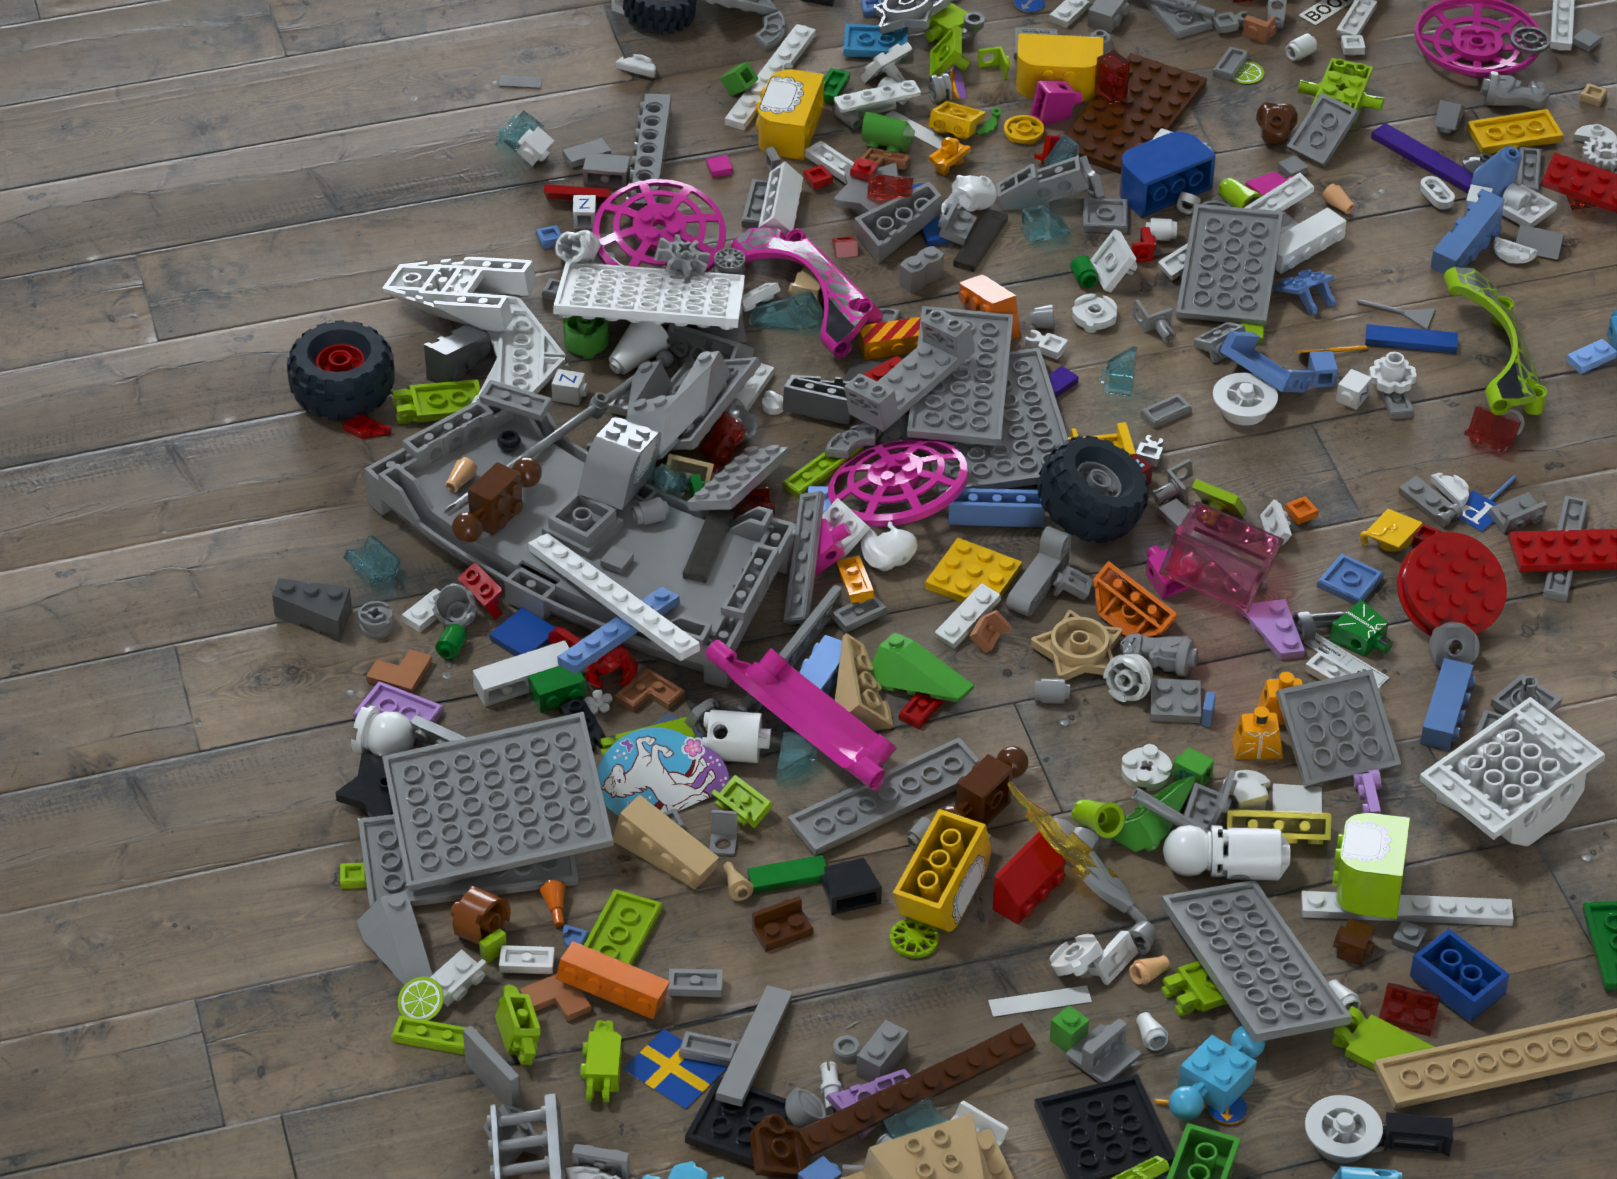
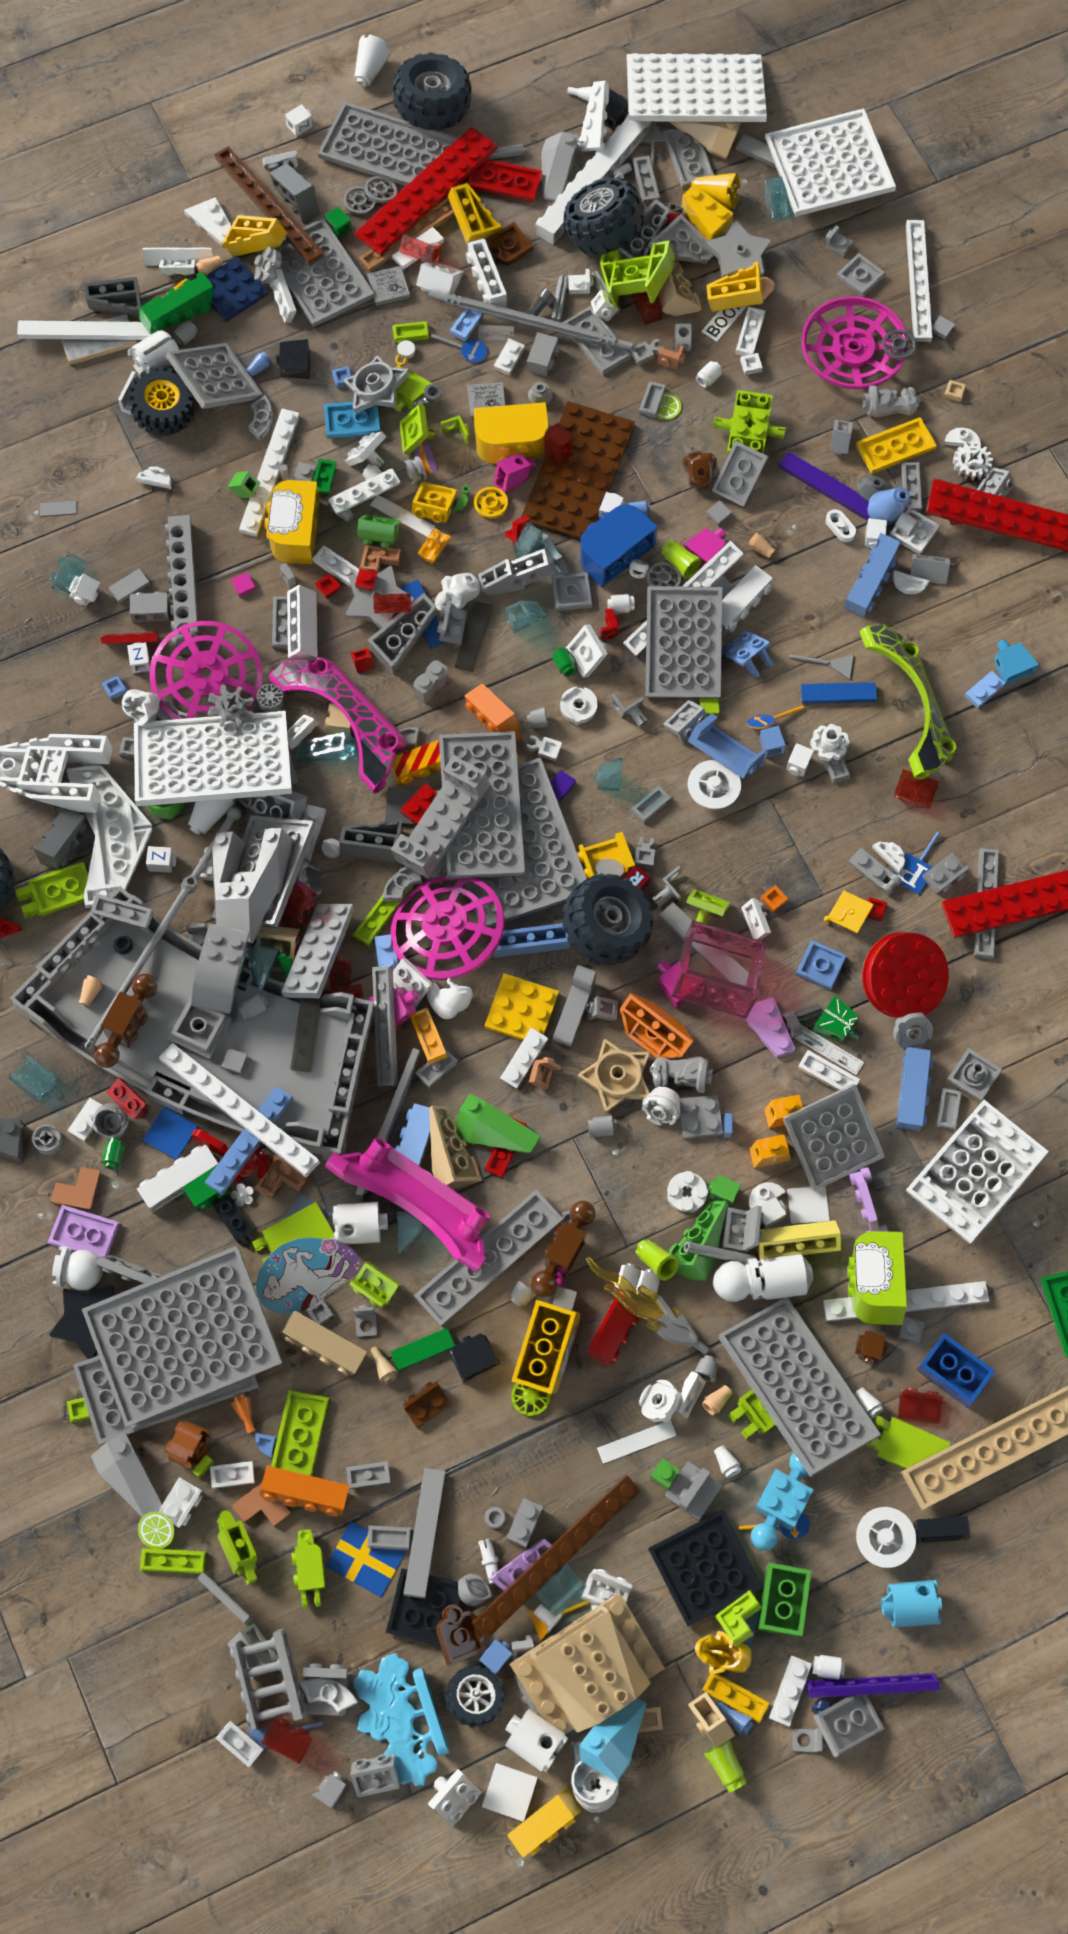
camera: 10 degrees left, 25 degrees up
(696, 715) = (330, 1202): light grey tile -> none

